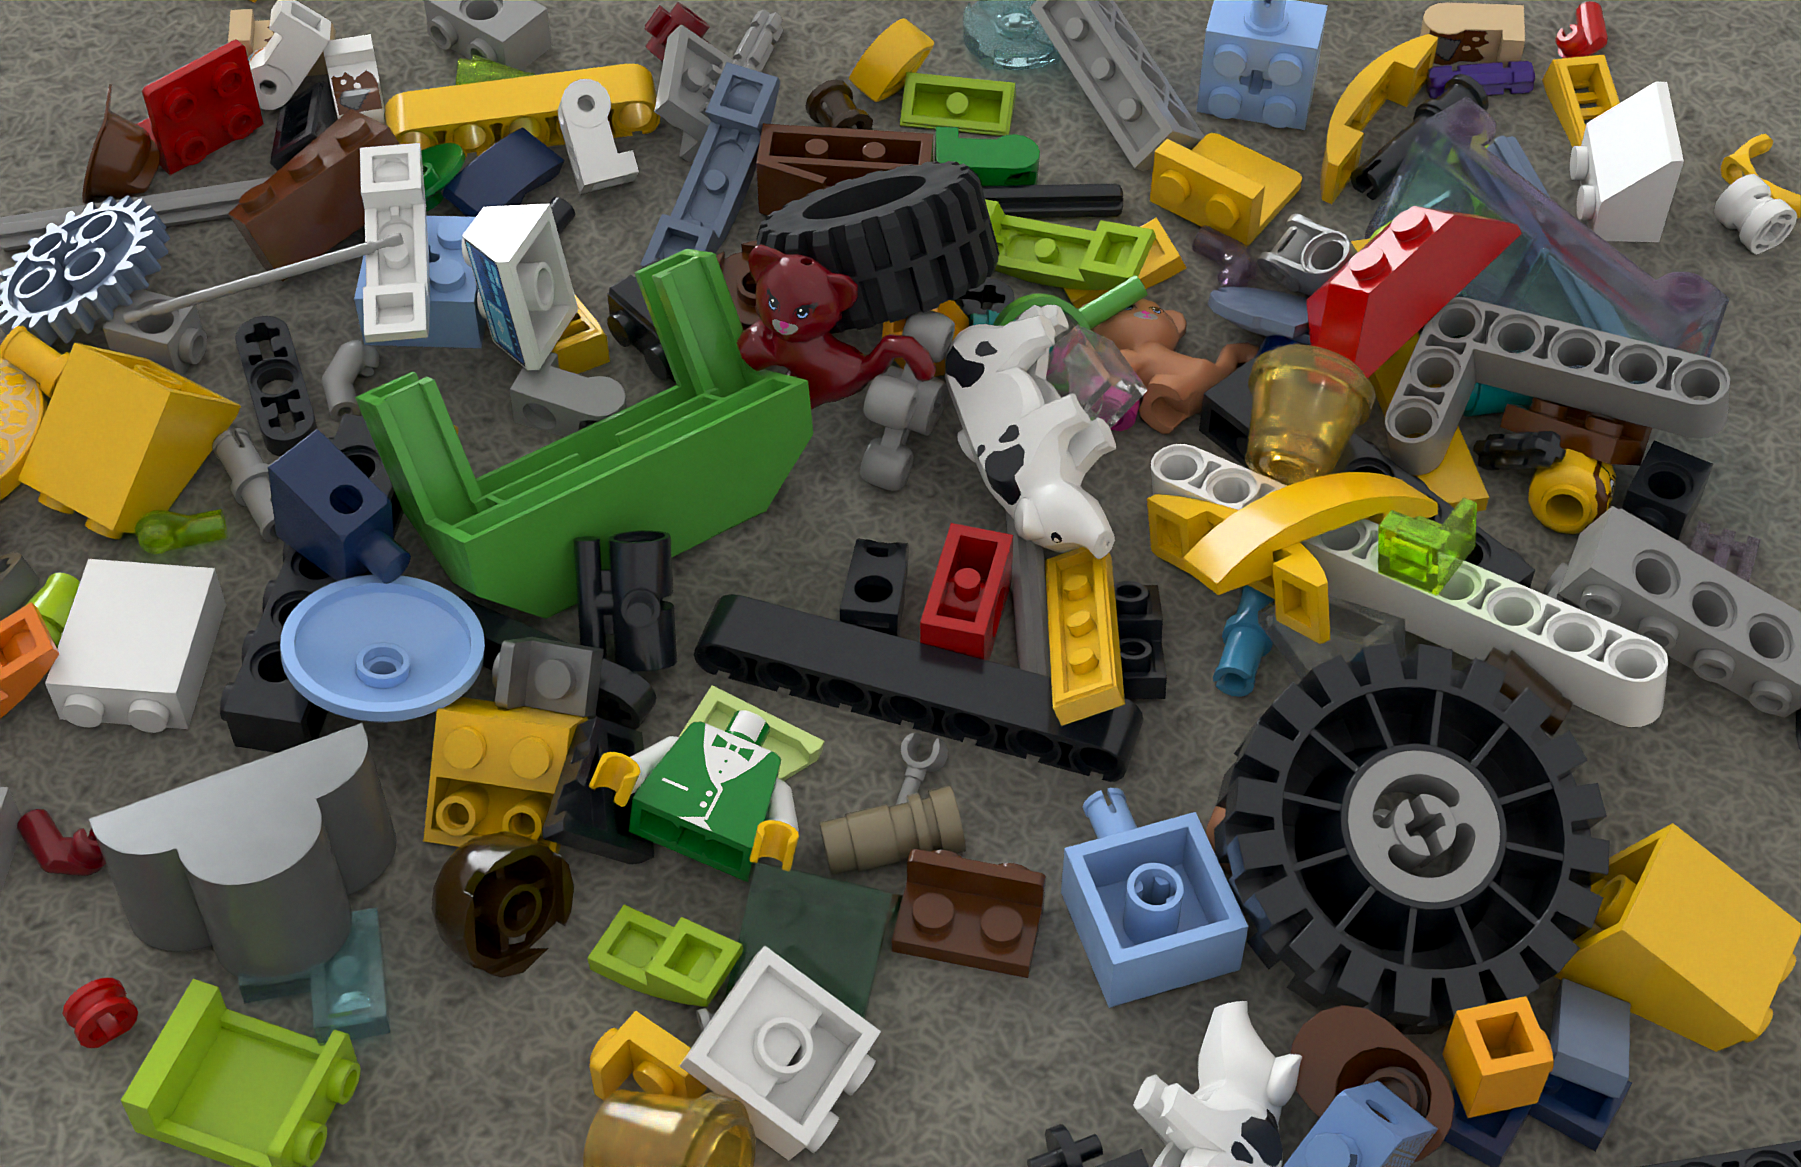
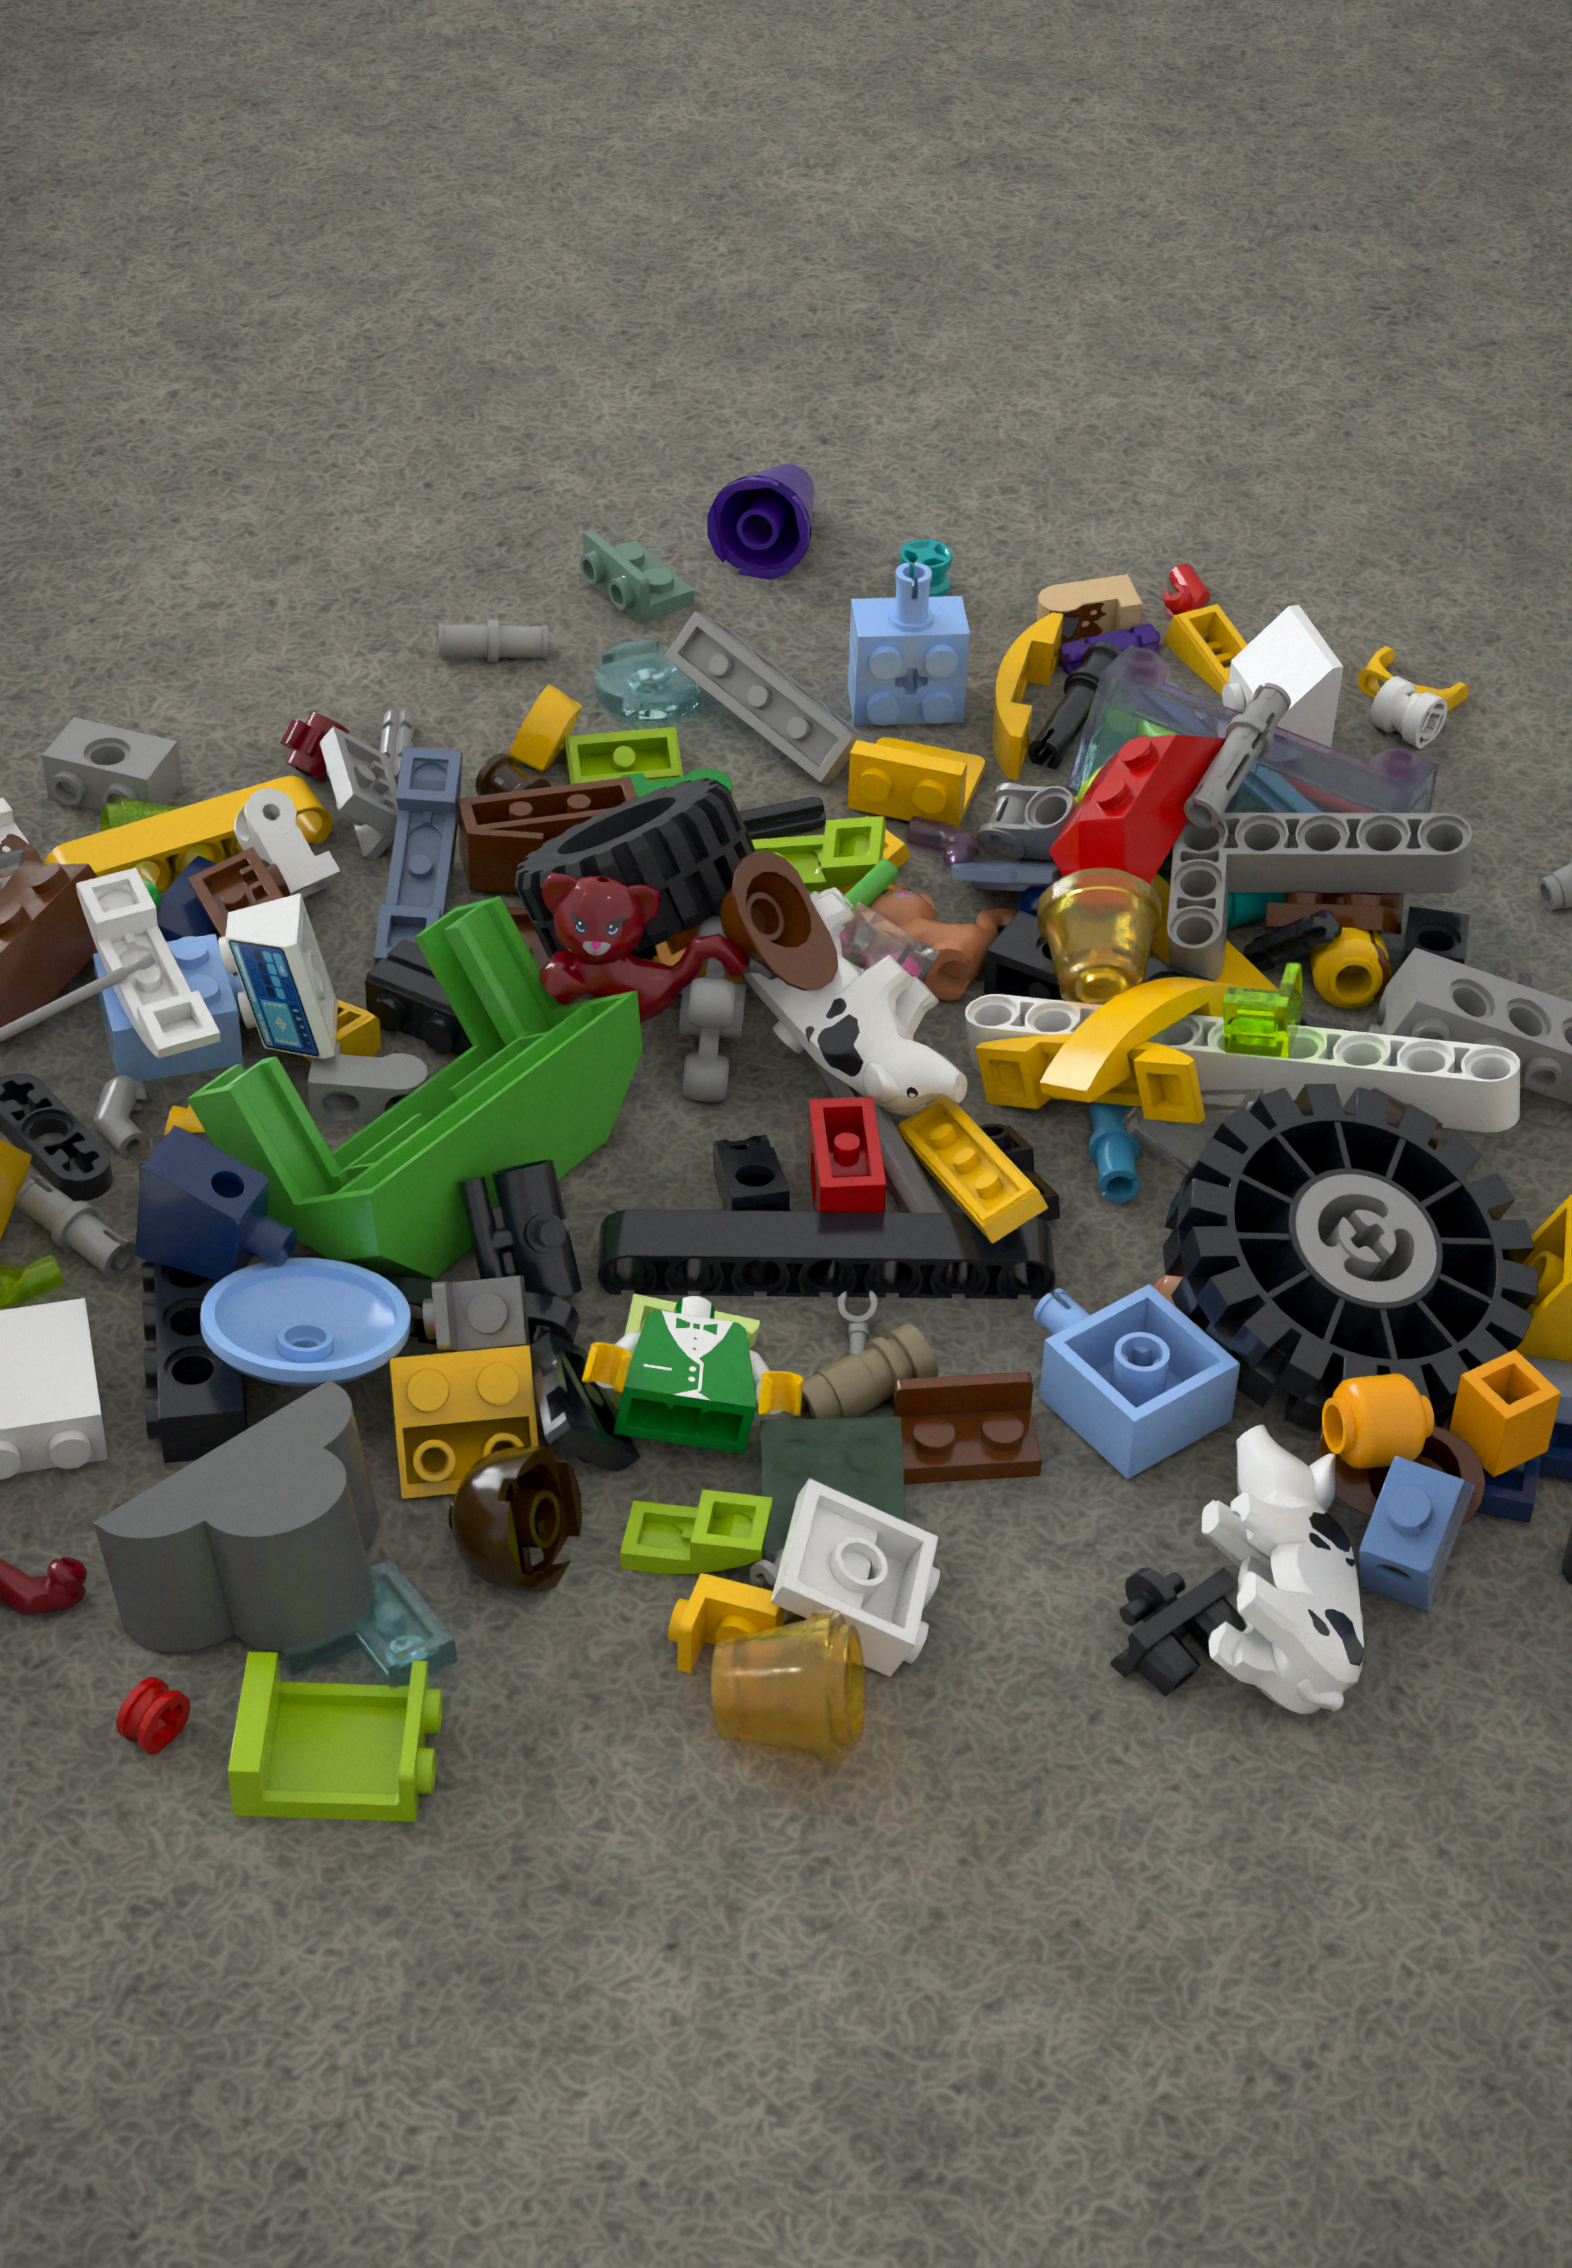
camera: 20 degrees left, 10 degrees down
(539, 175) = (237, 885): none -> reddish brown bracket
(973, 339) = (777, 922): none -> reddish brown piece
(1354, 1035) = (1376, 1420): none -> light orange head
(1537, 228) = (1247, 738): none -> light grey pin

